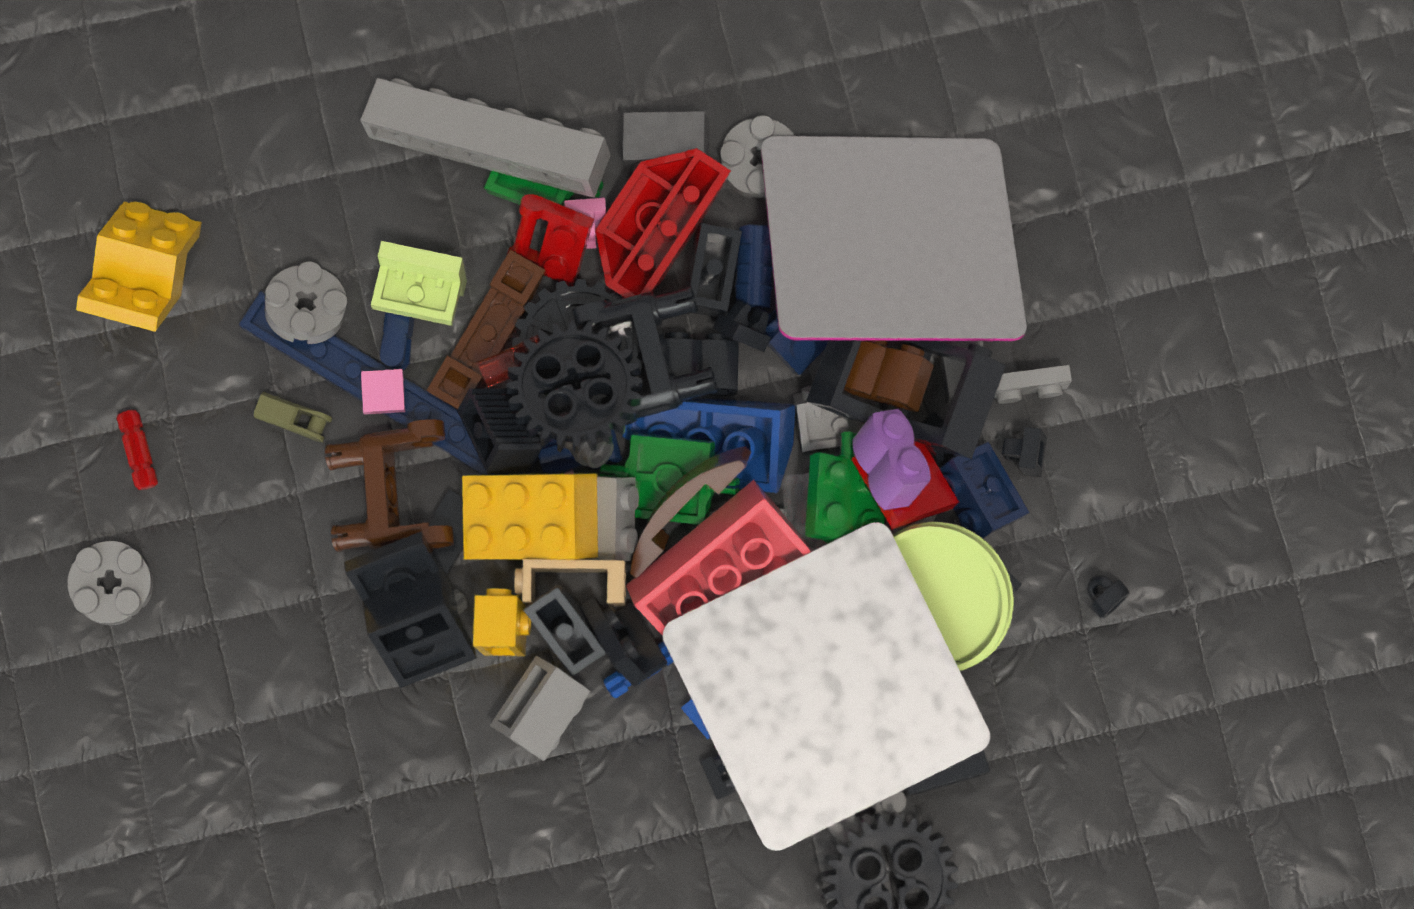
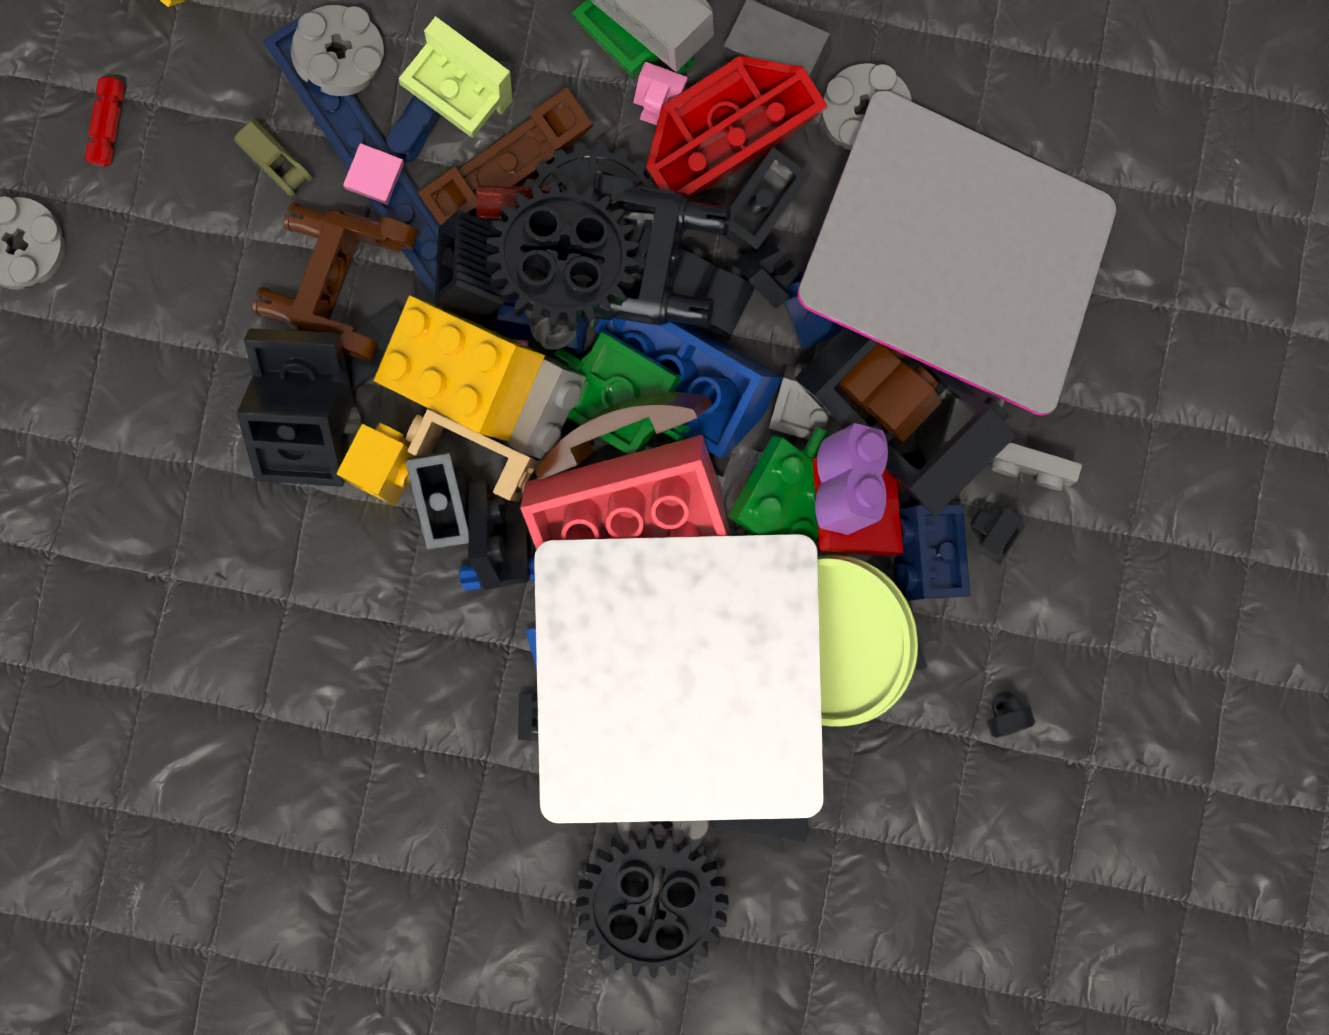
camera: 25 degrees right, 5 degrees up
(540, 708) = (381, 567): light grey brick -> none
(563, 241) = (626, 99): red plate -> none
(754, 267) = (805, 218): dark blue axle -> none

